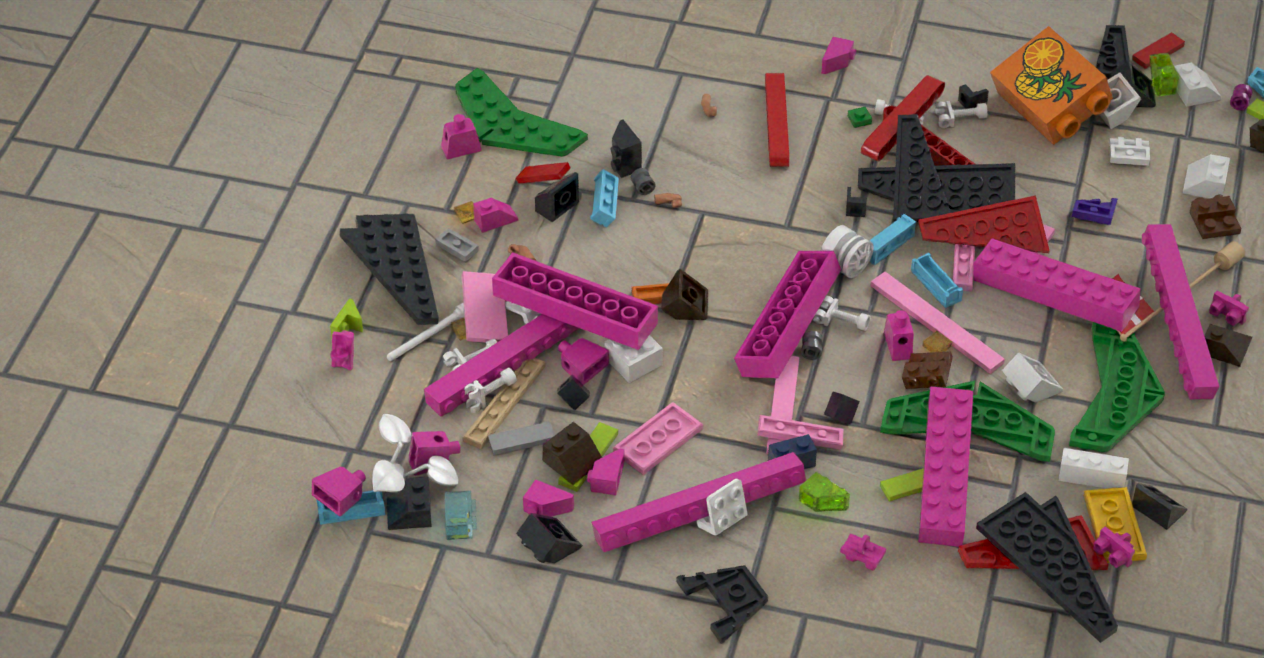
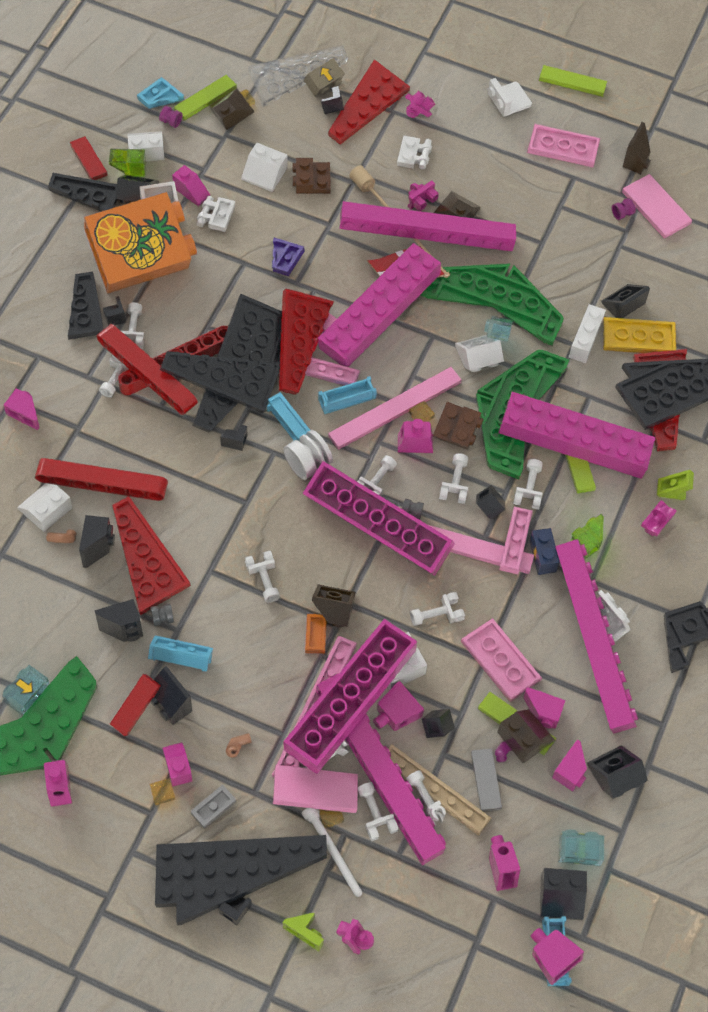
camera: 85 degrees left, 15 degrees up
(359, 275) = (235, 910): none -> black panel
(390, 475) = (500, 890): white plant -> none
(545, 105) = (25, 689): none -> clear light blue brick
(668, 197) = (187, 595): nougat arm -> none
(689, 364) = (417, 617): none -> white bar
(700, 164) = (150, 565): none -> red wing
(703, 118) = (95, 539): none -> black slope
(712, 238) = (270, 594): none -> white bar
(735, 89) = (46, 506): none -> white slope
(844, 370) = (459, 462): none -> white bar
(856, 447) = (534, 467): none -> white bar
(859, 117) = (113, 410): green plate -> none
(913, 570) = (675, 485): none -> lime slope
(971, 75) = (85, 308): none -> black wing
(1063, 384) = (498, 328): none -> clear light blue brick
(1118, 546) = (674, 335): dark pink hips -> none
(1155, 123) = (190, 185): none -> dark pink slope

